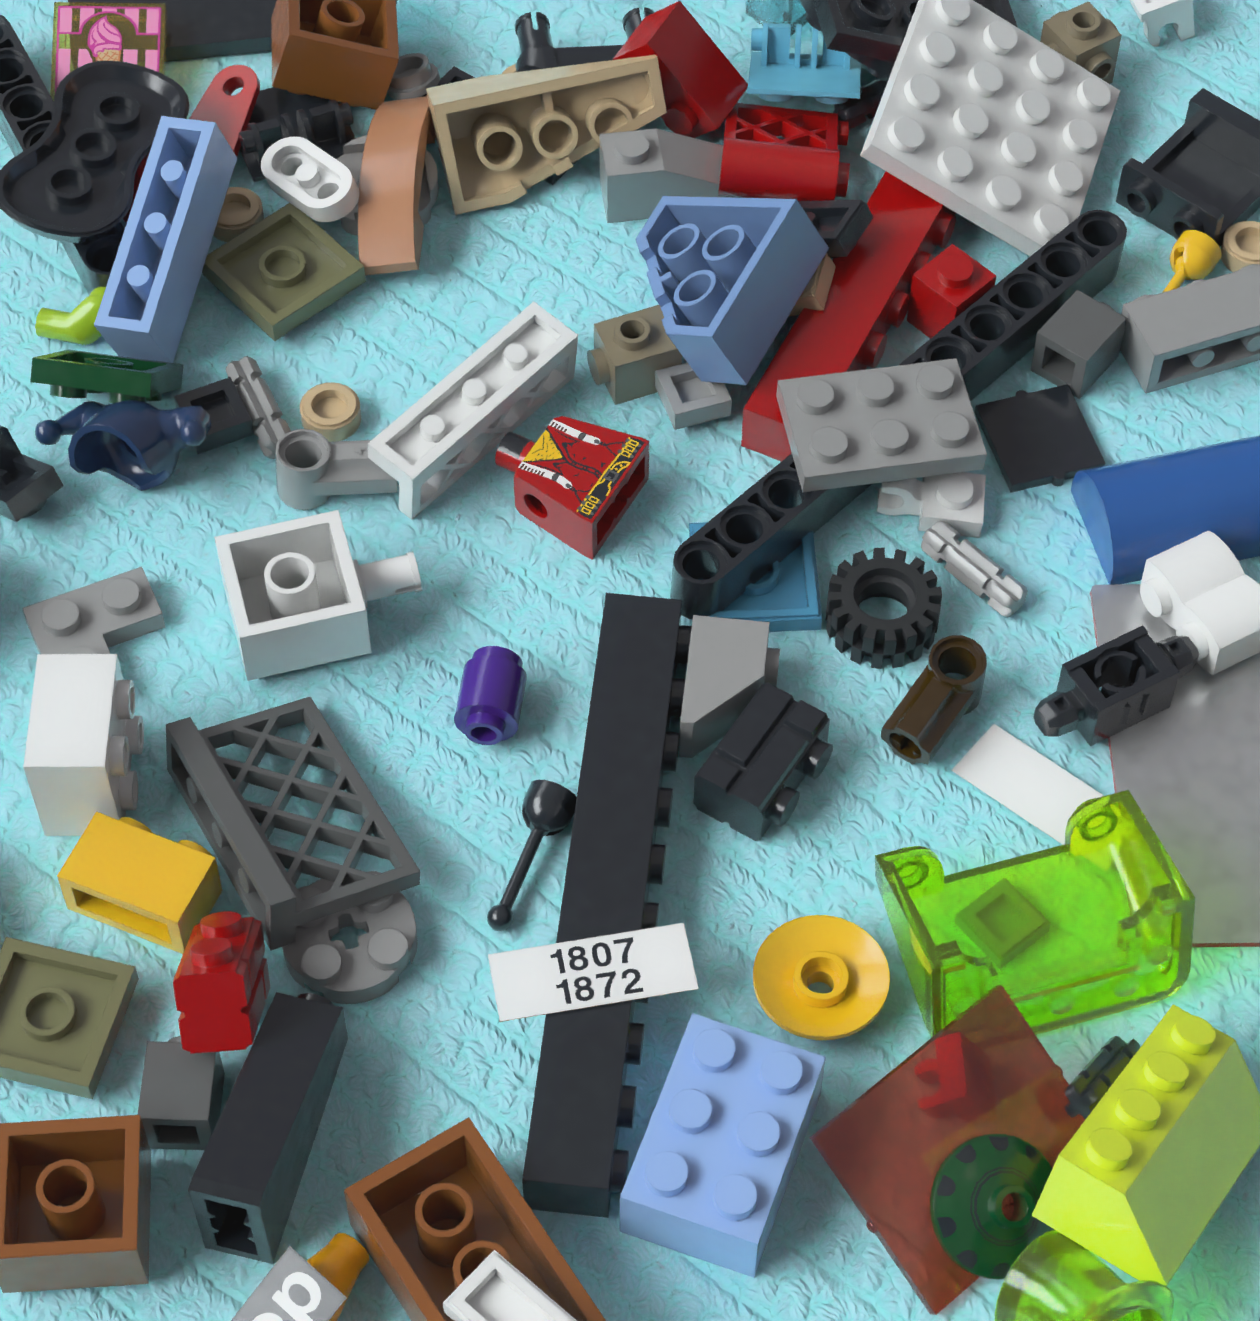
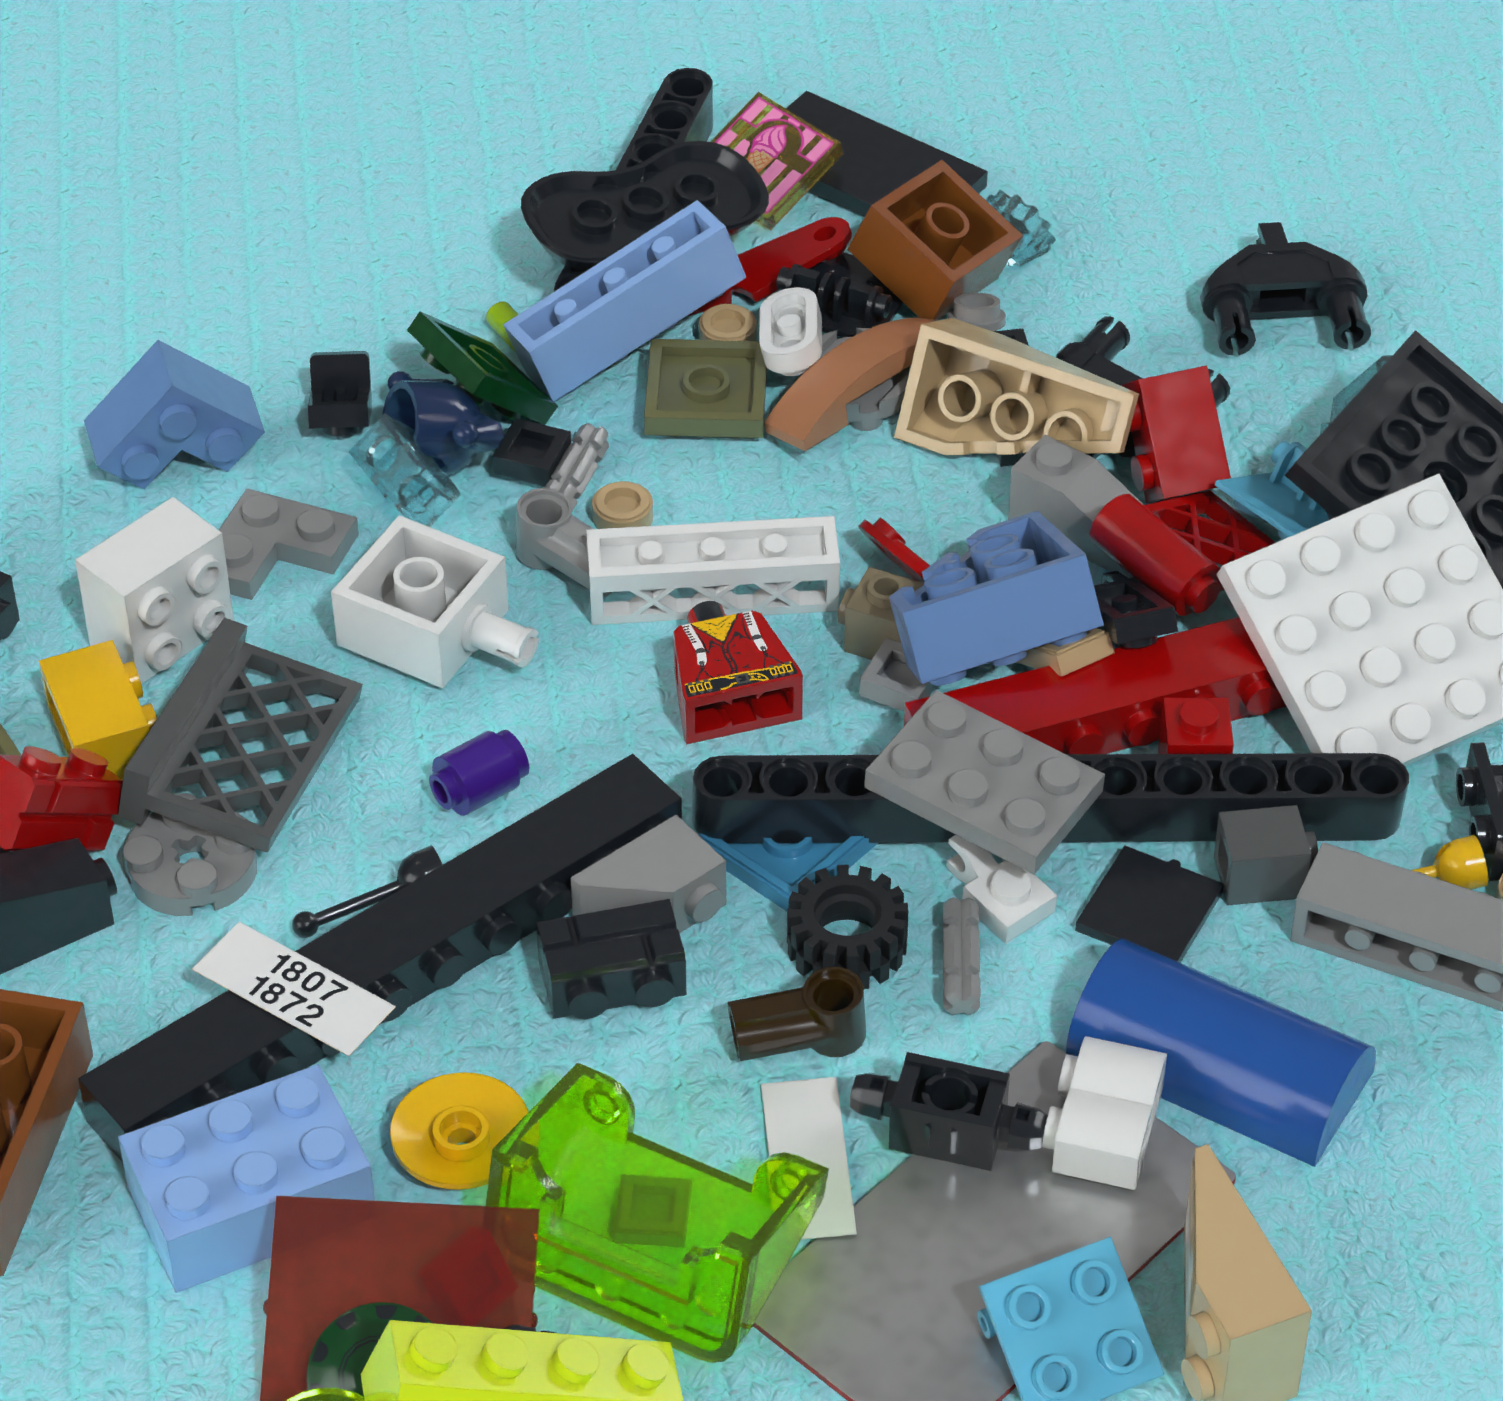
camera: 45 degrees right, 10 degrees down
(147, 501) = (405, 473): none -> clear light blue leg
(603, 302) = (894, 547): none -> red piece

